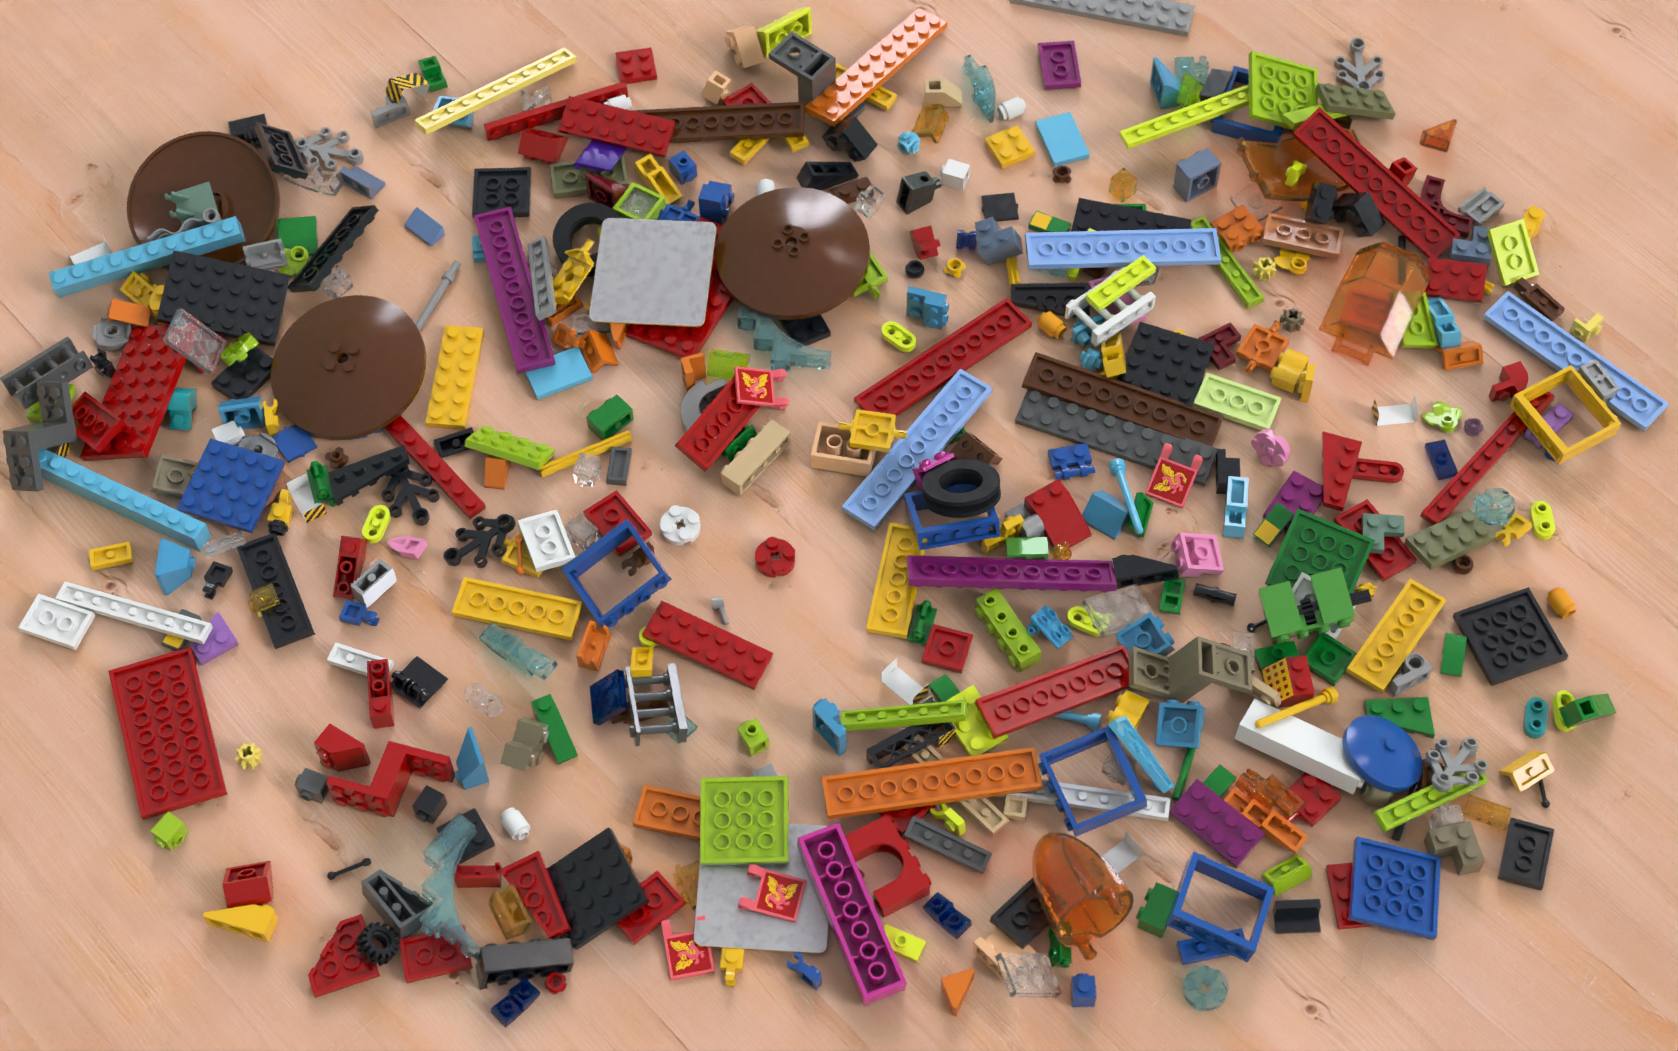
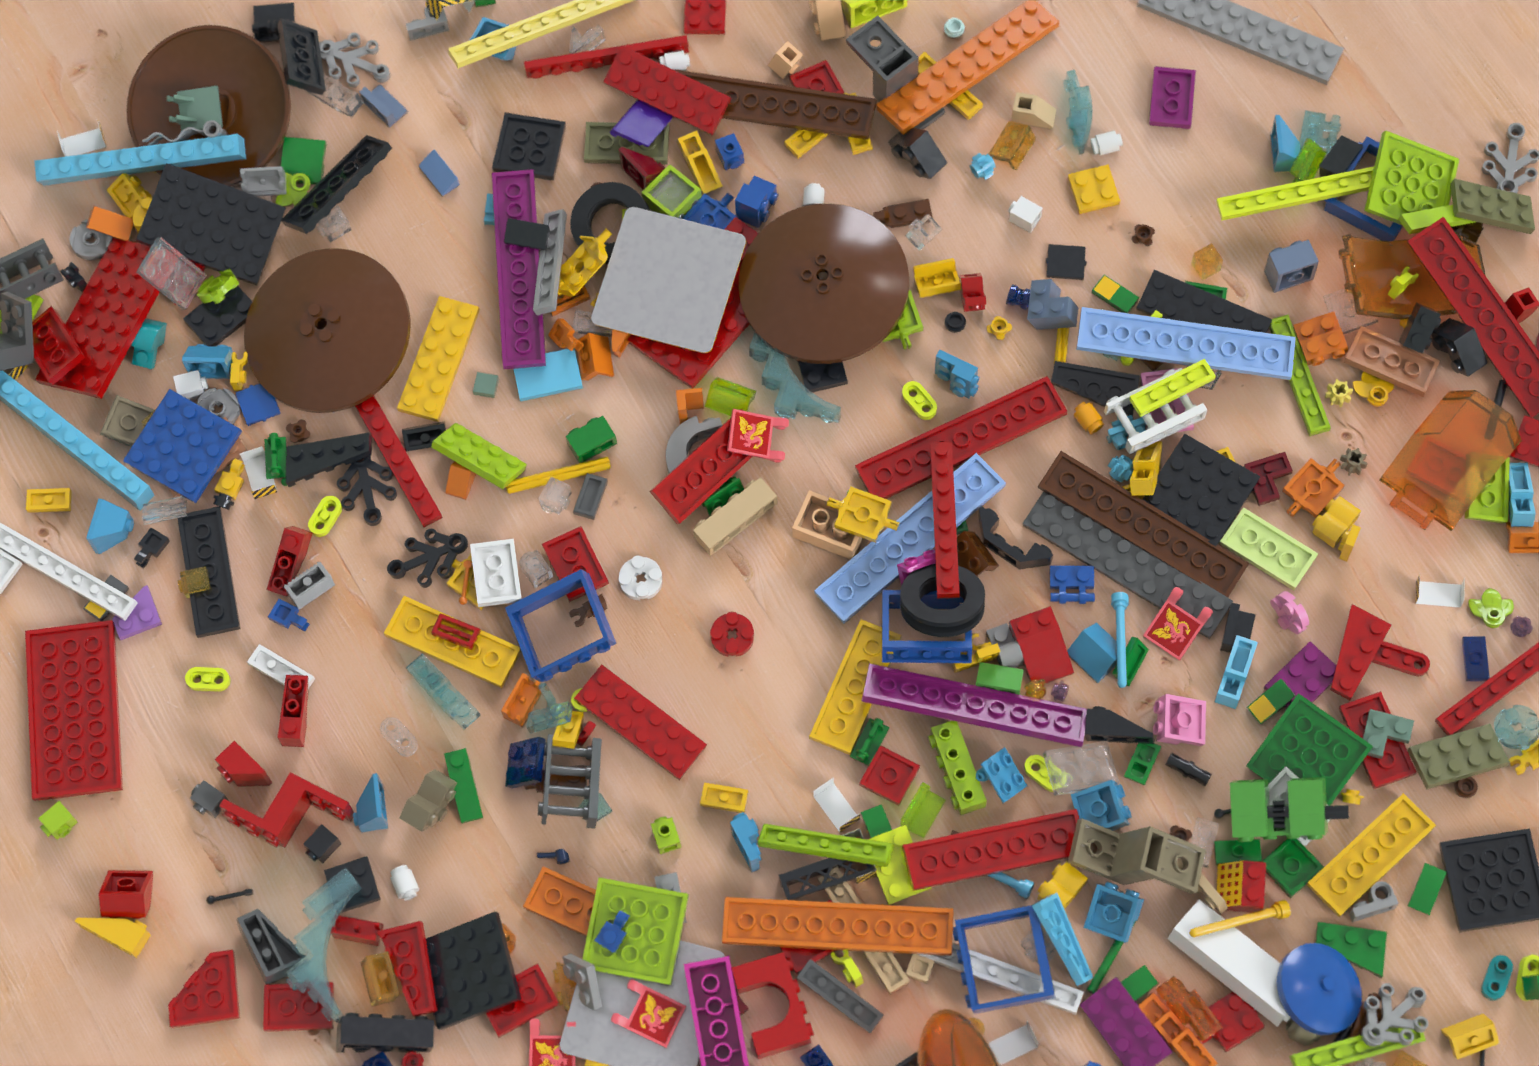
camera: 15 degrees right, 10 degrees up
(248, 756) = (150, 759): light yellow gear -> none
(292, 682) = (208, 679): none -> neon yellow plate
(373, 953) = (252, 980): black tyre -> none
(408, 546) = (353, 548): bright pink plate -> none
(417, 682) = (335, 703): black hinge -> none
(447, 278) = (451, 240): light grey bar -> none
(503, 391) = (485, 384): none -> sand green tile
(516, 257) = (526, 234): none -> black slope
(518, 601) = (473, 638): none -> red tile
(542, 145) = (583, 96): red slope -> none
(624, 653) = (550, 716): none -> clear light blue plate
(657, 772) = (561, 856): none -> dark blue hand
(661, 657) = (587, 730): none -> red tile
(707, 867) = (585, 976): none -> light grey plate
(718, 603) = (662, 676): light grey hand -> none
(724, 826) = (612, 934): none -> blue plate
(799, 695) = (724, 797): none -> yellow plate
(825, 174) = (881, 189): black slope -> none
(857, 42) = (954, 28): none -> light aqua plate
(889, 236) = (936, 278): none -> yellow bracket
(916, 191) = (978, 228): pearl dark grey torso -> none
(947, 425) = (944, 520): none -> red plate
(984, 672) = (922, 811): none -> clear neon green panel
(1035, 443) = (1036, 556): none -> black slope
(1062, 139) = (1154, 190): medium azure tile -> none
(1083, 550) = (1060, 691): none -> clear purple plate

